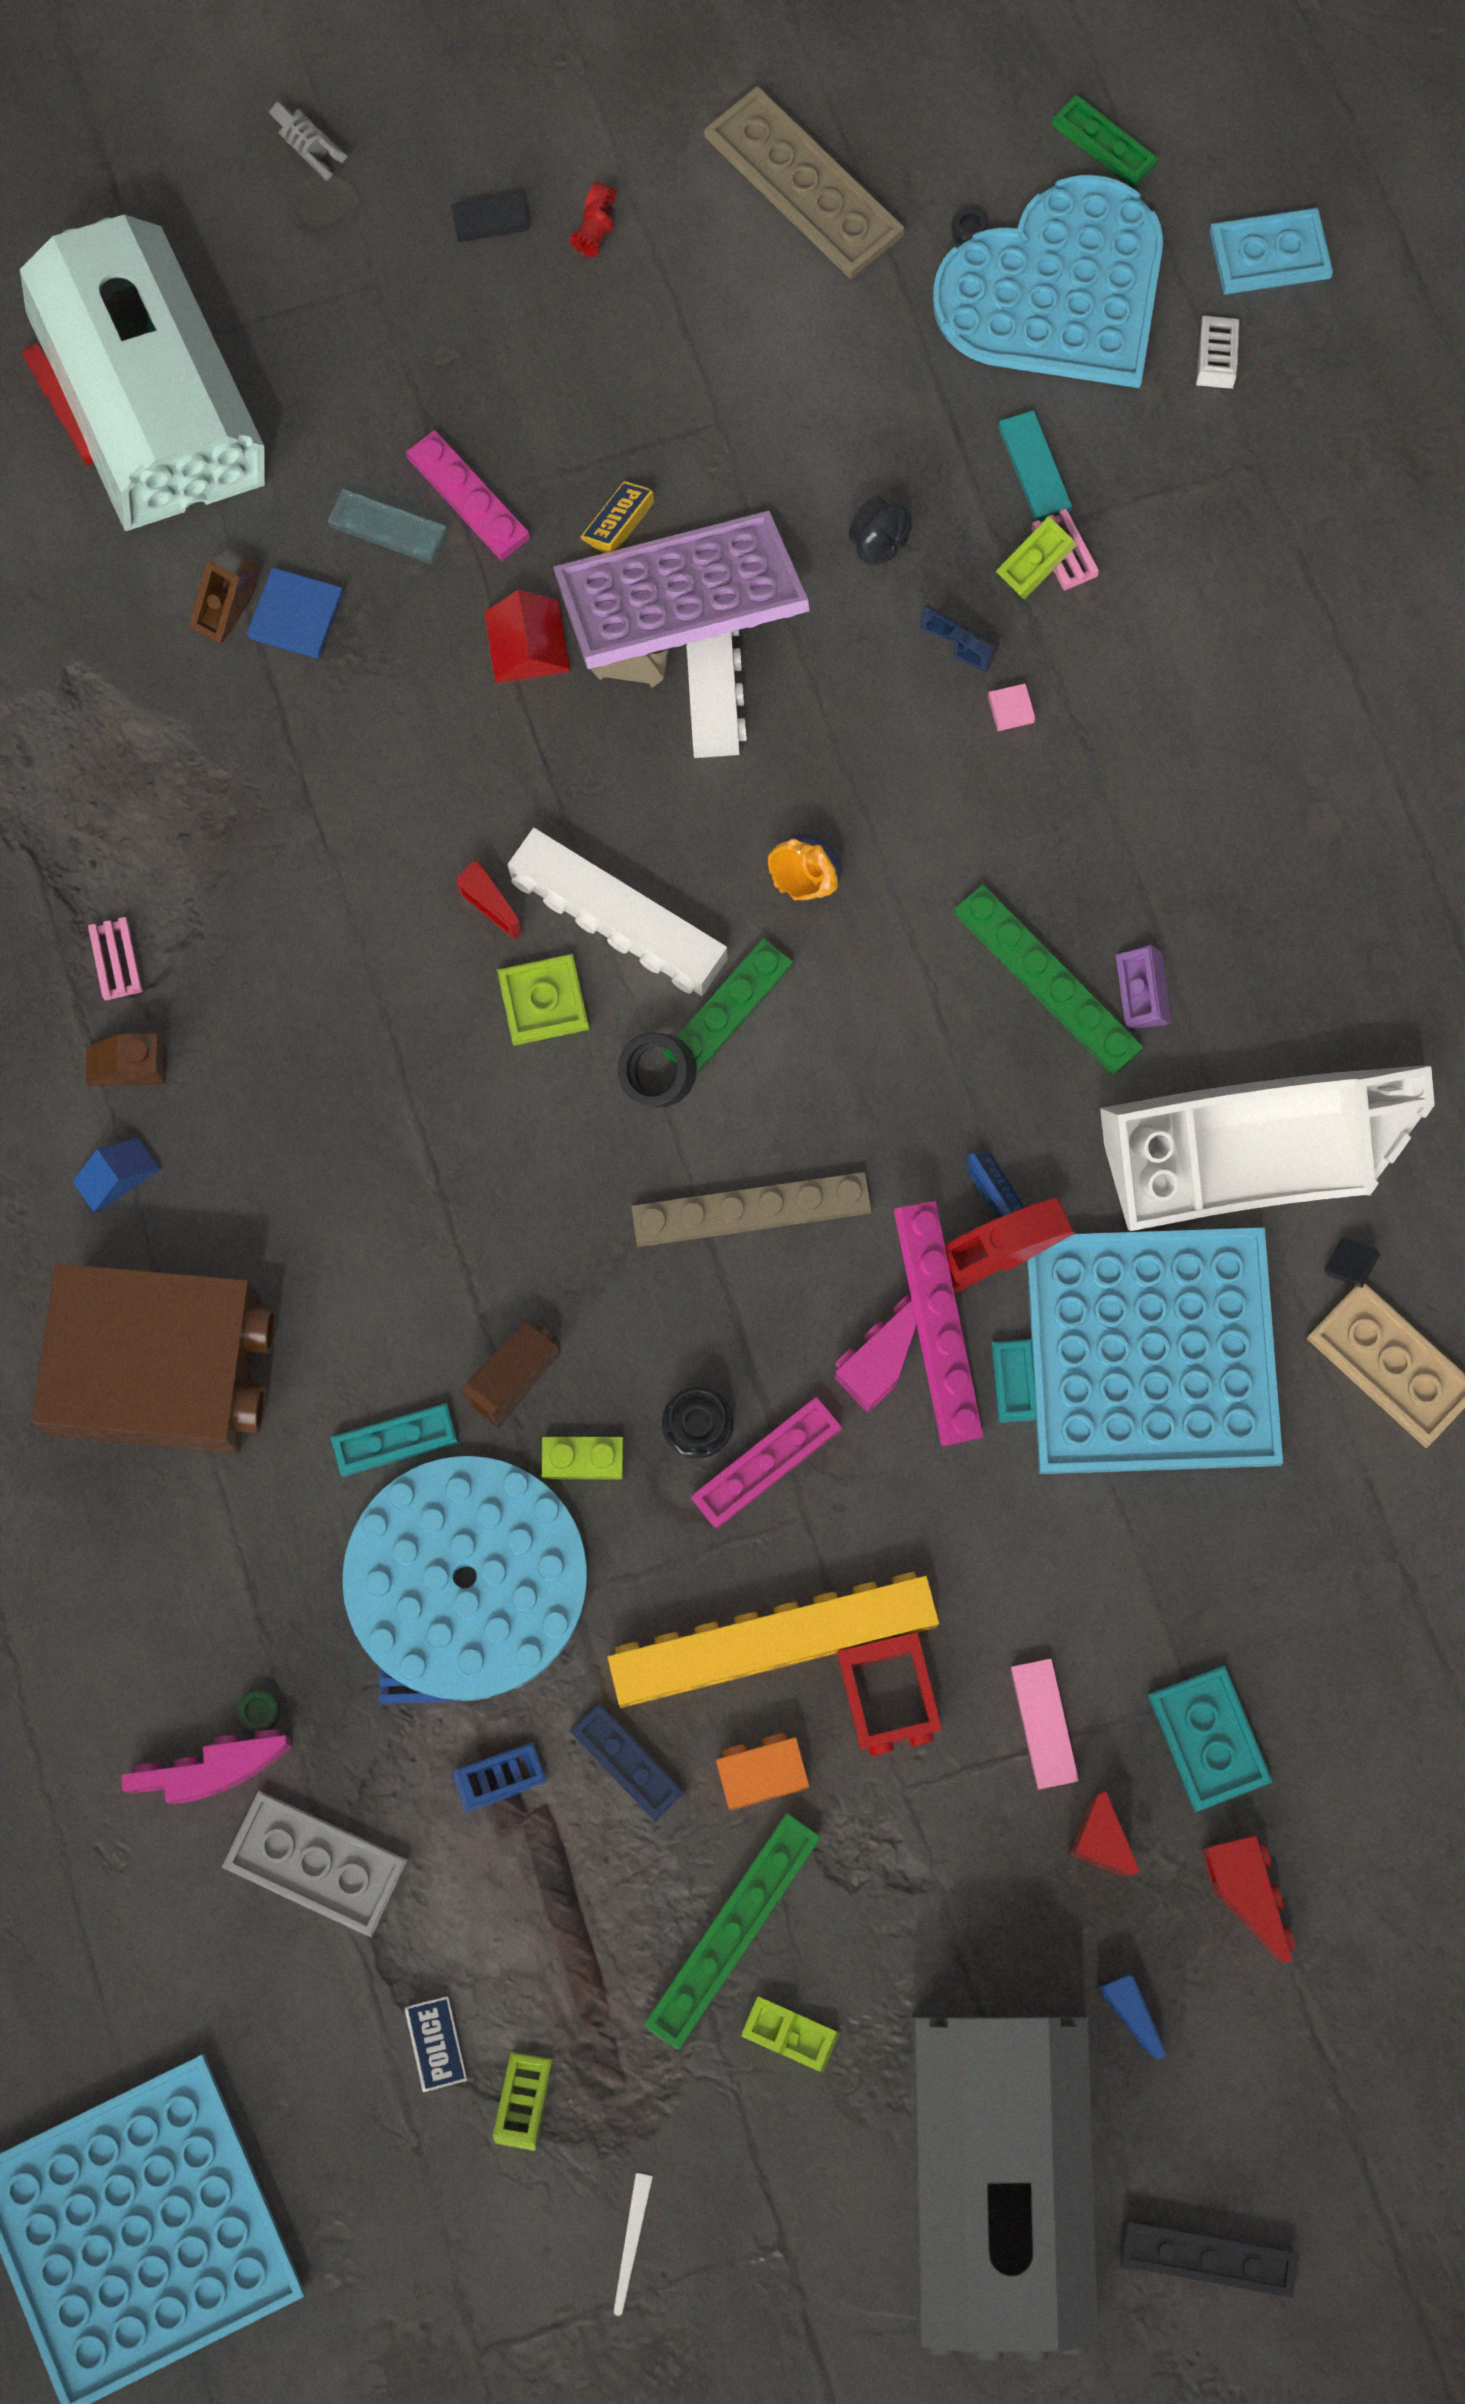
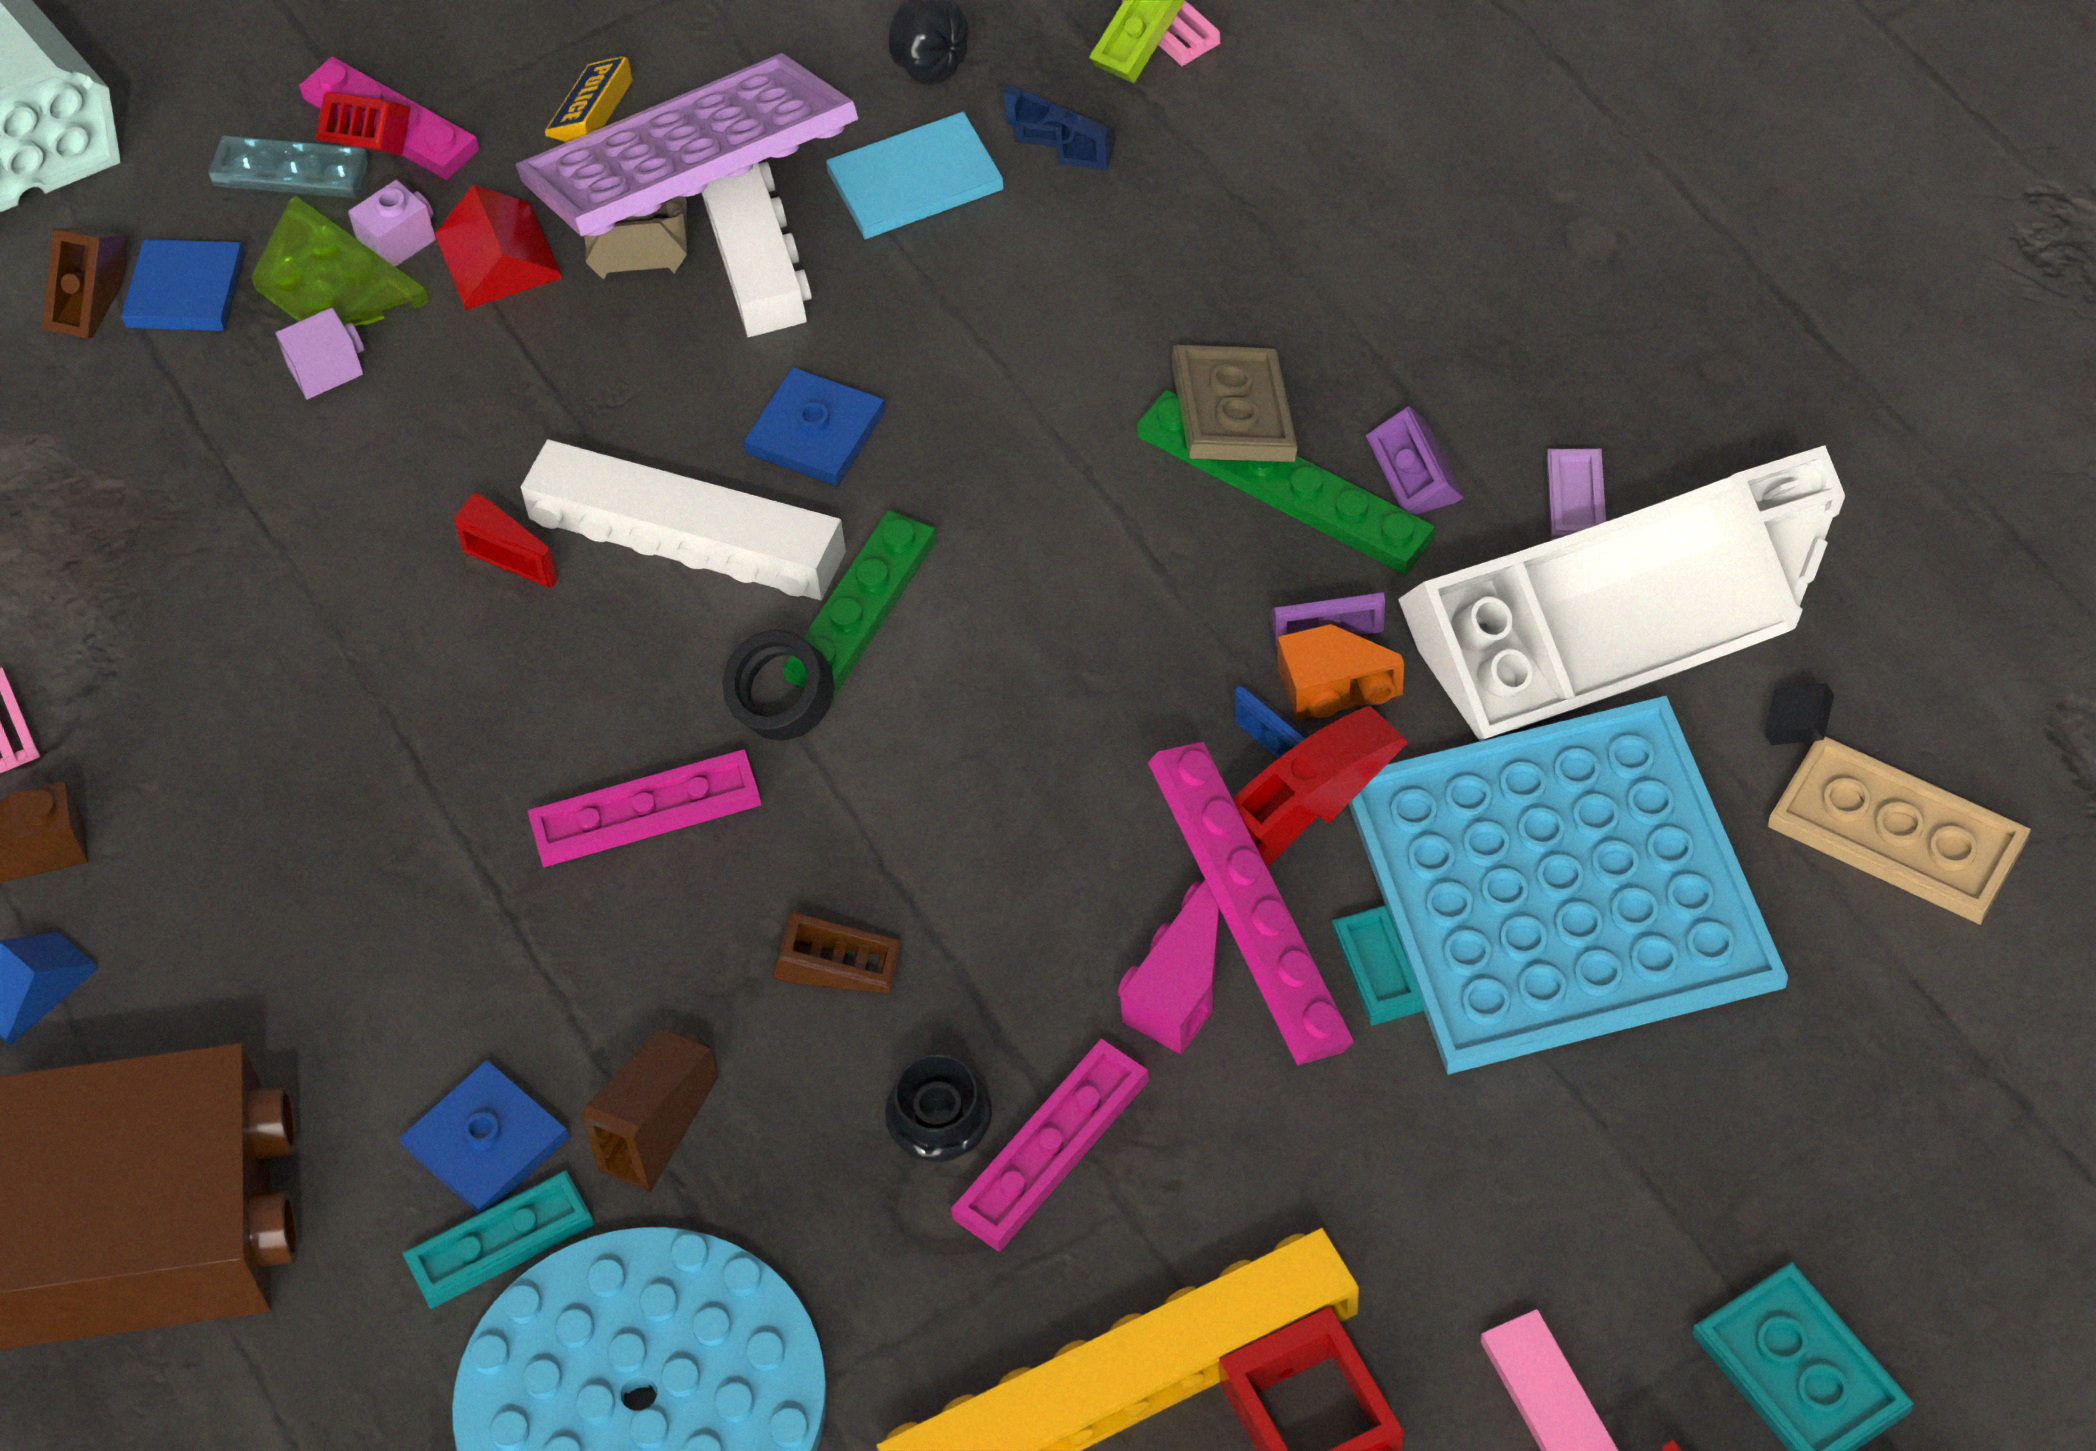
camera: 10 degrees left, 20 degrees down
(385, 706) = (321, 352): none -> lavender brick
(397, 1364) = (484, 1138): none -> blue plate
(401, 629) = (322, 267): none -> clear neon green wing
(455, 600) = (393, 223): none -> lavender brick
(469, 504) = (389, 130): none -> red slope
(543, 999) = (602, 646): lime tile -> none
(547, 1140) = (644, 808): none -> dark pink plate
(582, 1457) = (781, 1201): lime plate -> none
(645, 1267) = (815, 971): none -> reddish brown slope
(725, 851) = (814, 426): none -> blue plate
(751, 1209) = (949, 834): dark tan plate -> none
(805, 867) = (923, 413): light orange hair -> none
(844, 645) = (914, 175): none -> medium azure tile
(1011, 707) = (1149, 196): bright pink tile -> none
(1026, 912) = (1233, 403): none -> dark tan tile
(1040, 1149) = (1336, 671): none -> orange slope
(1049, 1102) = (1354, 614): none -> medium lavender slope
(1249, 1043) = (1575, 490): none -> lavender tile

